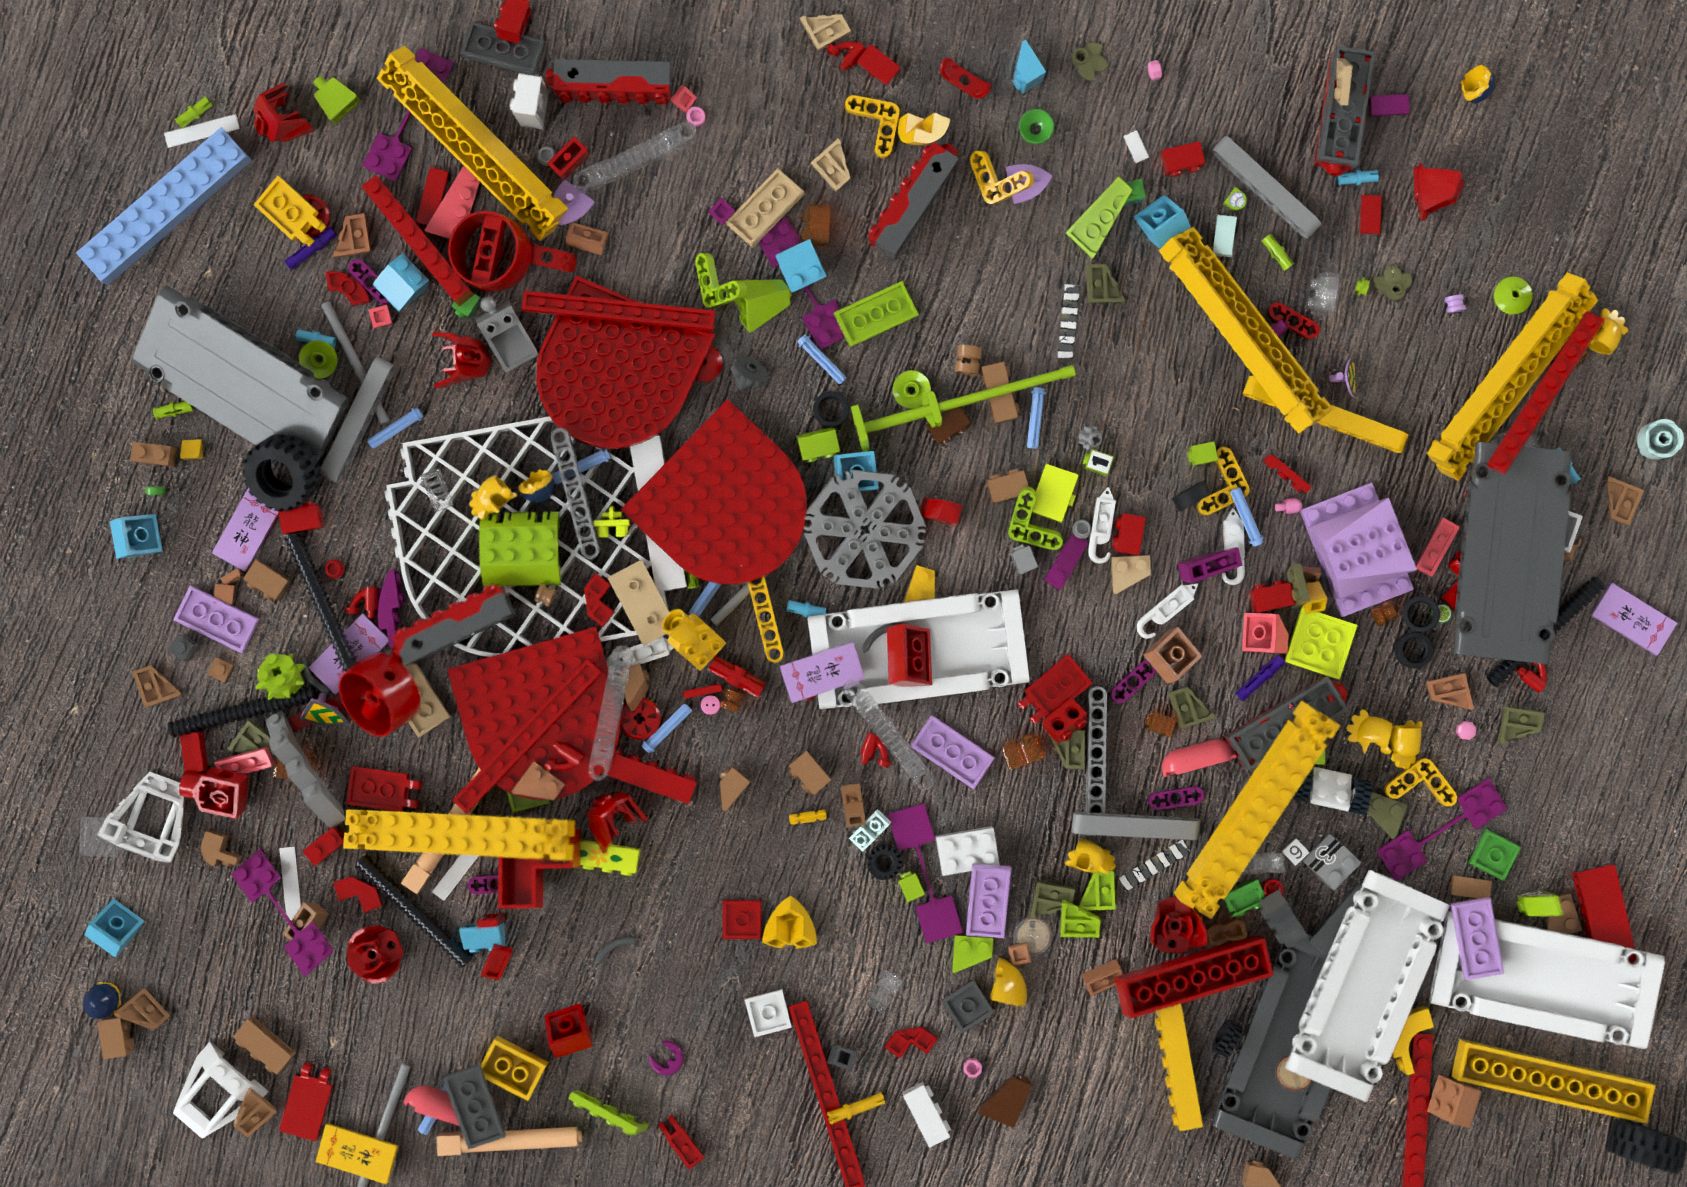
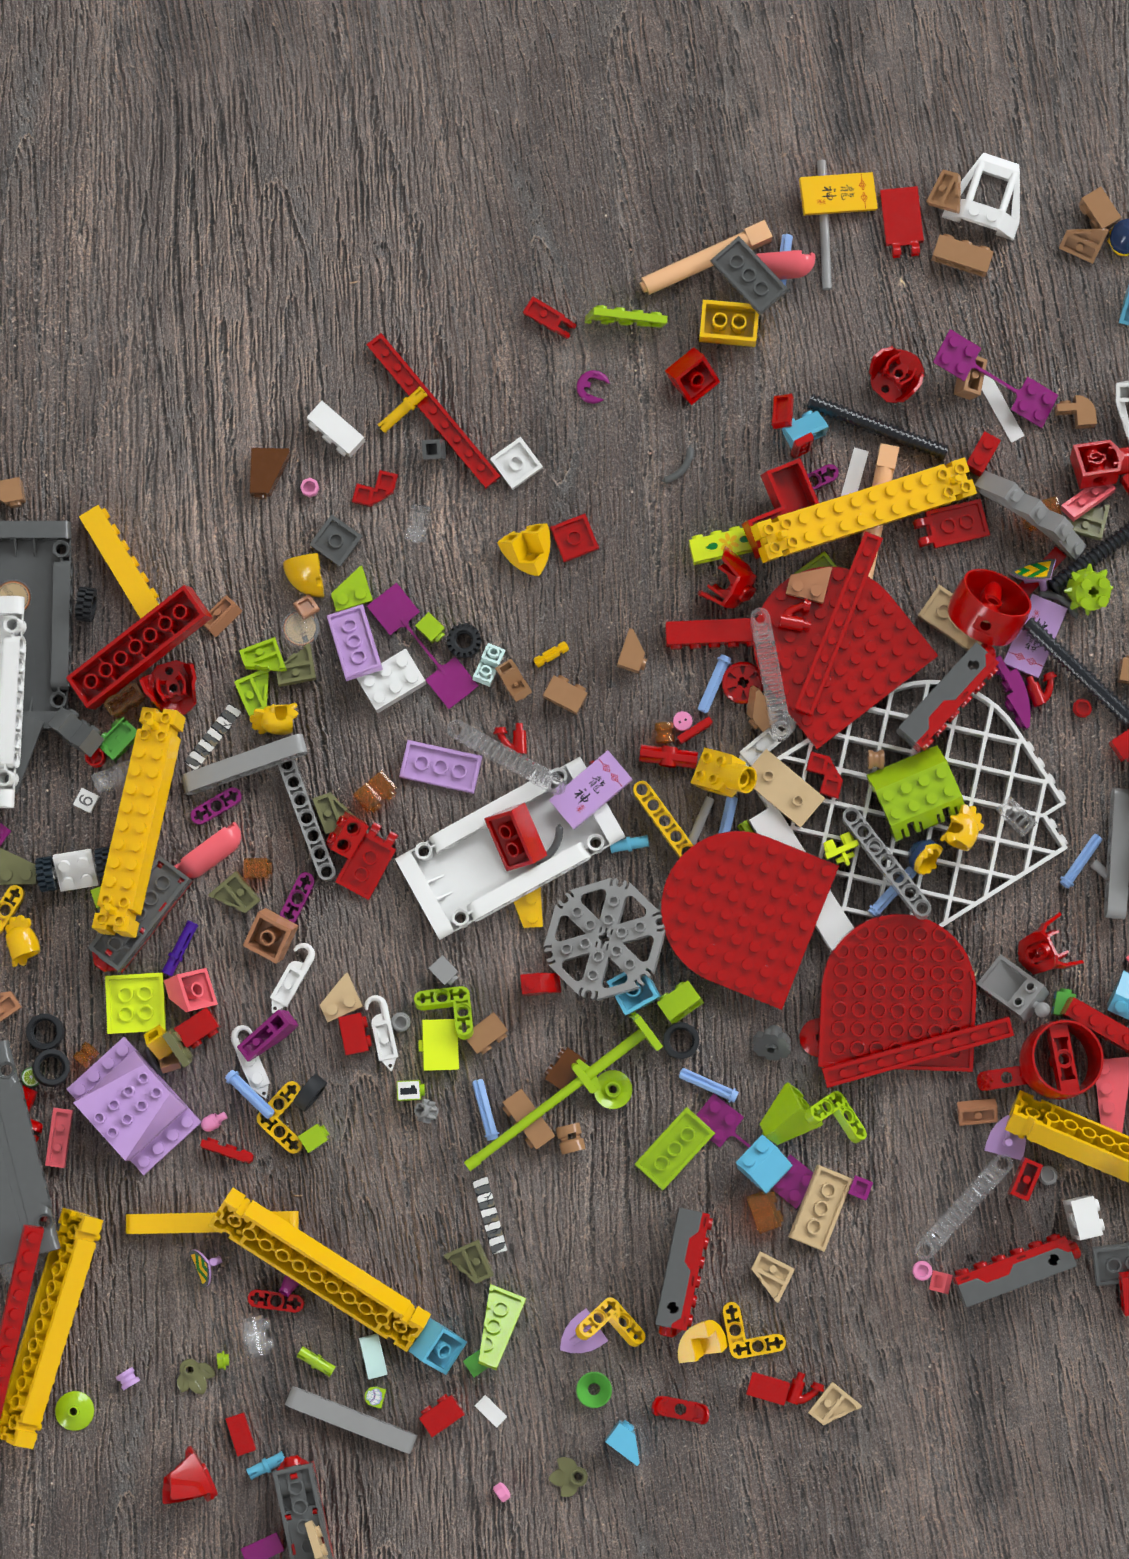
camera: 170 degrees right, 5 degrees down
(367, 893) = (928, 427): red tile -> none
(1065, 562) = (404, 984): magenta slope -> none
(1331, 862) = (49, 803): light grey slope -> none
(1369, 730) = (58, 939): yellow piece -> none

